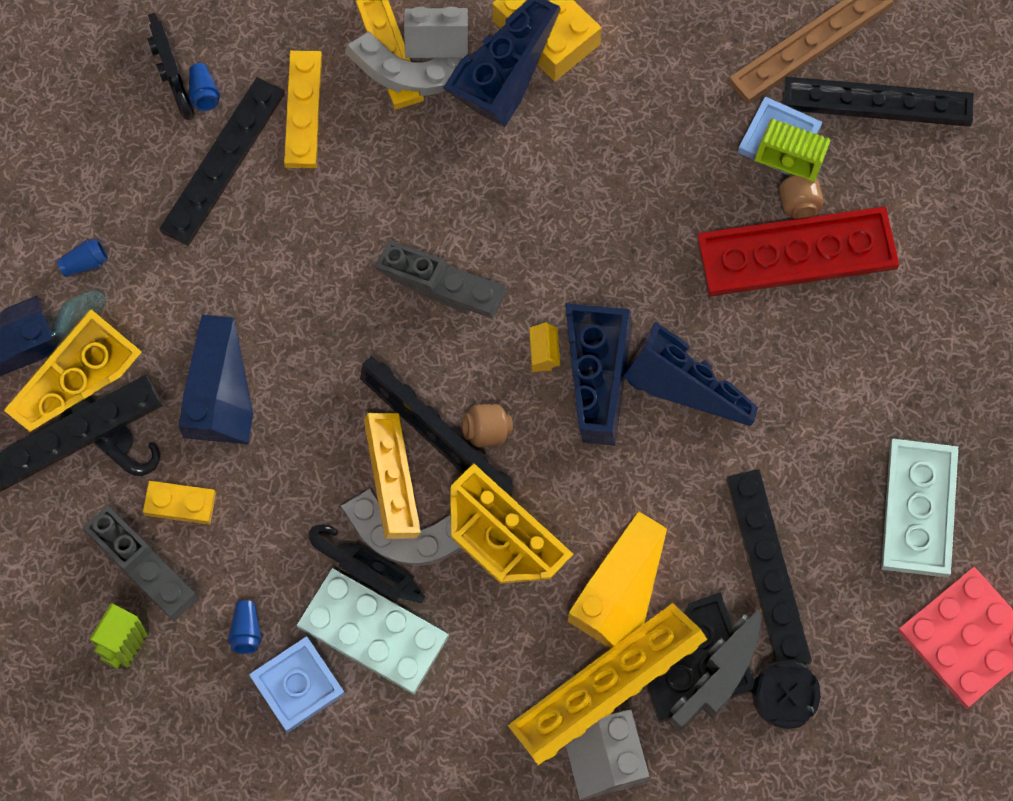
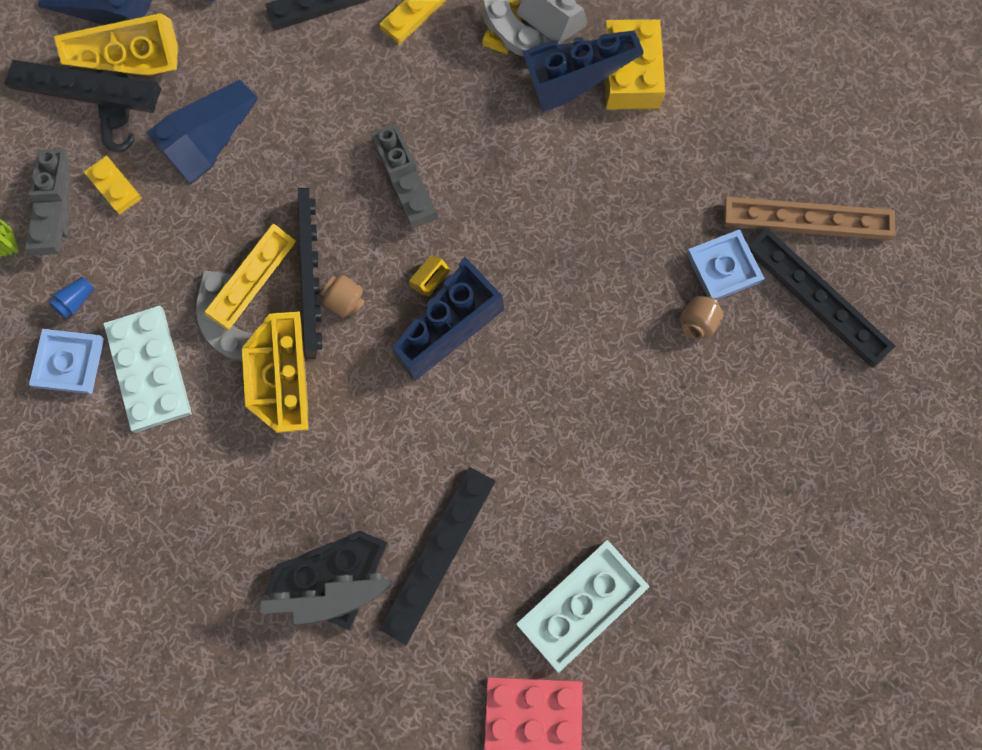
camera: 40 degrees right, 5 degrees up
(75, 309) = (179, 16): clear light blue arm -> none
(367, 566) = (181, 323): black plate -> none
(606, 683) = (247, 537): yellow plate -> none
(608, 757) = (209, 586): light grey slope -> none
(621, 588) = (321, 482): yellow wedge -> none
(669, 373) = (498, 366): dark blue wedge -> none
(786, 694) = (365, 653): black tile -> none
(792, 150) = (721, 279): lime brick -> none
(797, 251) = (665, 354): red plate -> none

